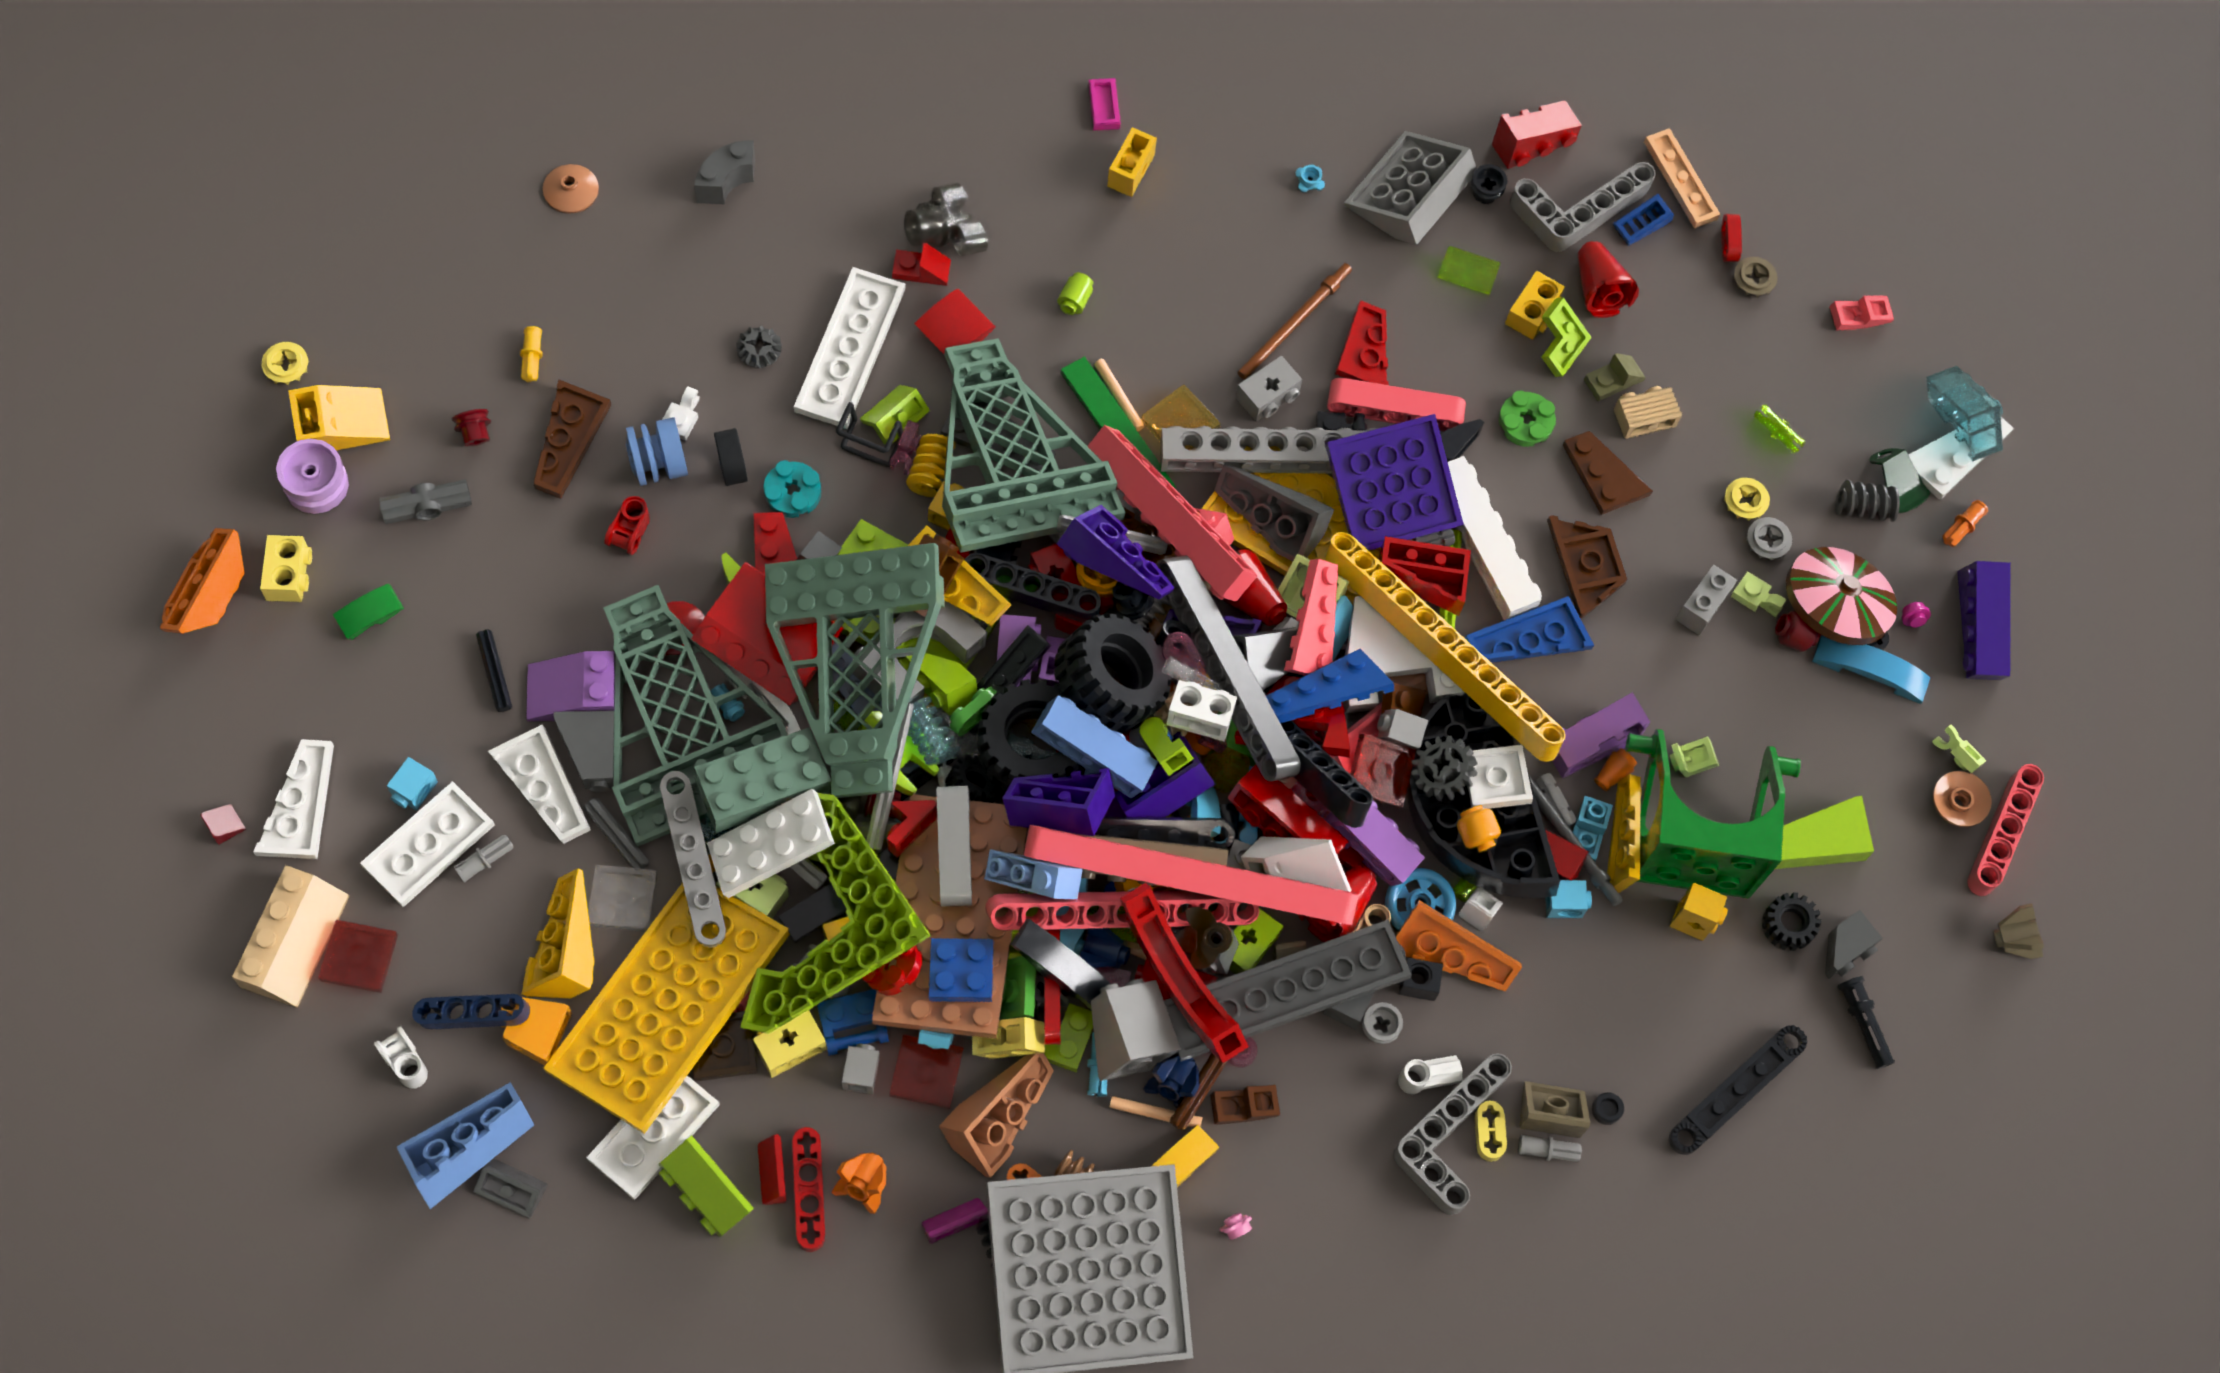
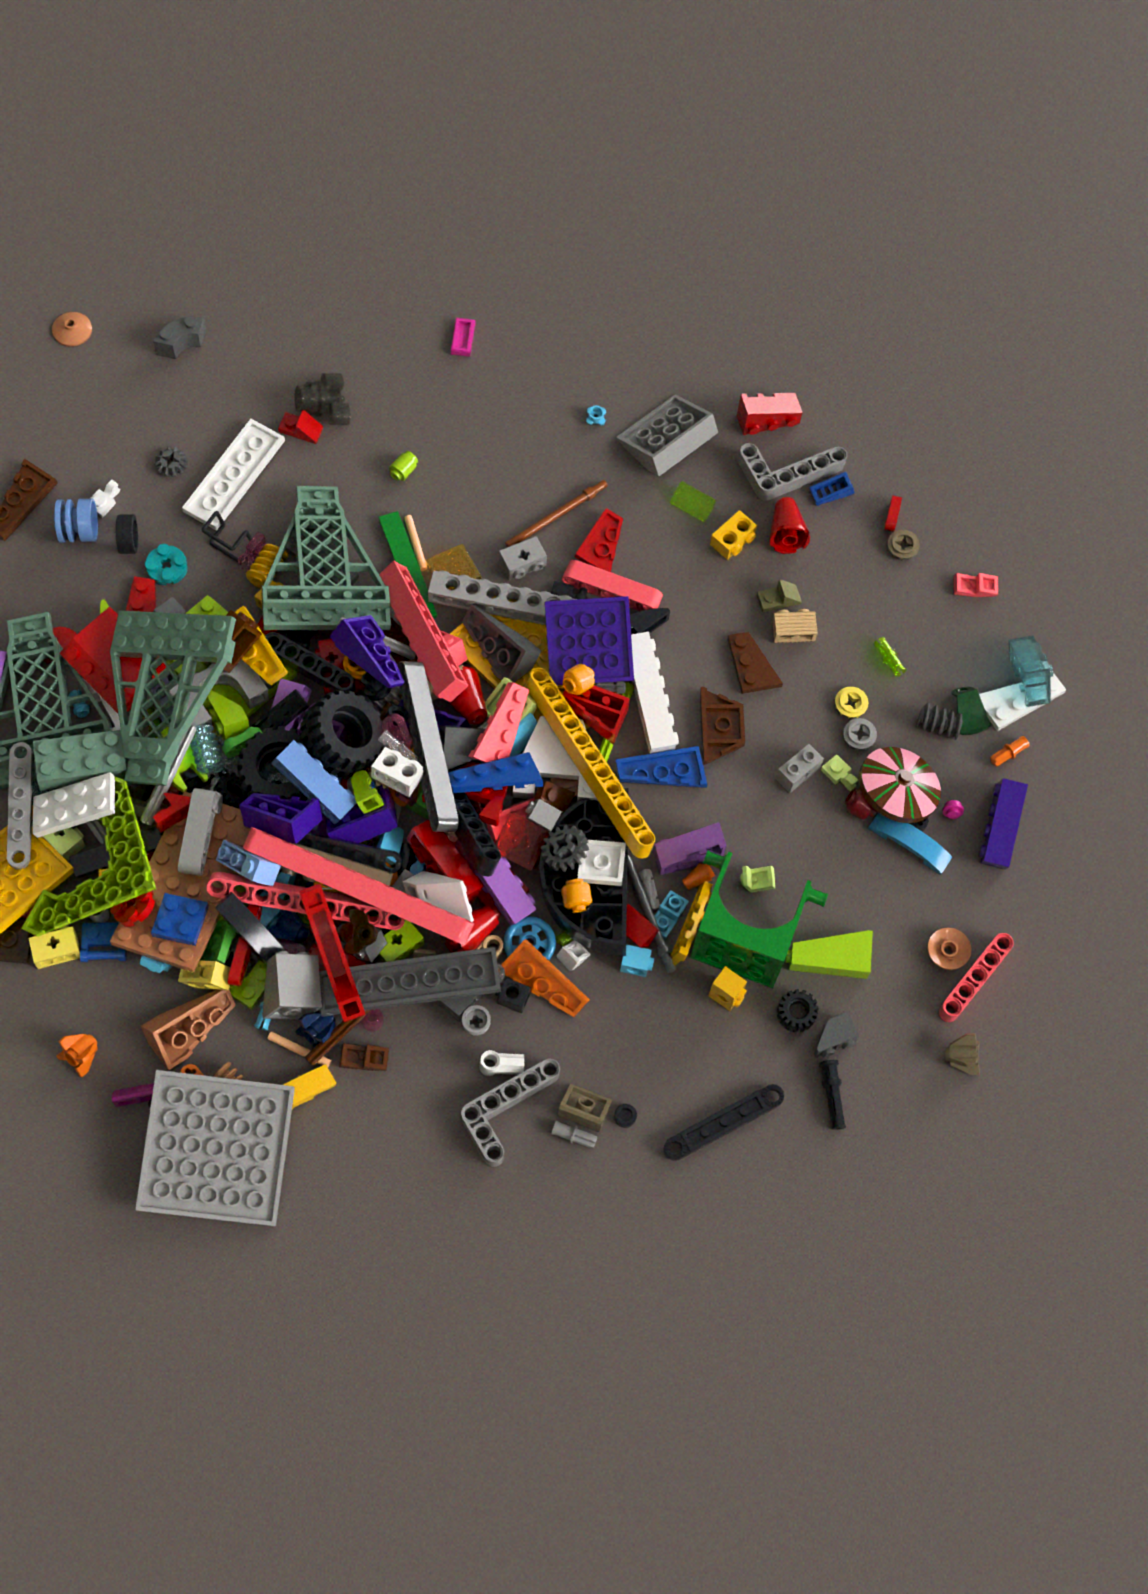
camera: 15 degrees right, 0 degrees up
(531, 353) = (11, 437): yellow axle -> none
(628, 530) = (42, 571): red piece -> none
(772, 1171) = (20, 1033): red slope -> none
(805, 1189) = (38, 1050): red beam -> none
(861, 1069) = (99, 975): light grey brick -> none
(899, 405) = (257, 521): lime panel -> none
(926, 1073) = (145, 988): clear red plate -> none
(954, 322) = (312, 469): red slope -> none
(1131, 162) = (468, 380): yellow brick -> none
(1226, 768) = (412, 817): clear yellow brick -> none
(1236, 1225) = (332, 1140): bright pink plate -> none
(1400, 538) = (578, 679): none -> light orange head
(1490, 177) = (727, 438): black piece -> none
(1498, 1131) = (529, 1112): light yellow beam -> none
(1531, 404) = (706, 625): bright green plate -> none
(1569, 337) = (751, 562): lime plate -> none
(1682, 178) = (868, 464): light nougat plate -> none
(1965, 754) = (961, 917): yellowish green plate -> none

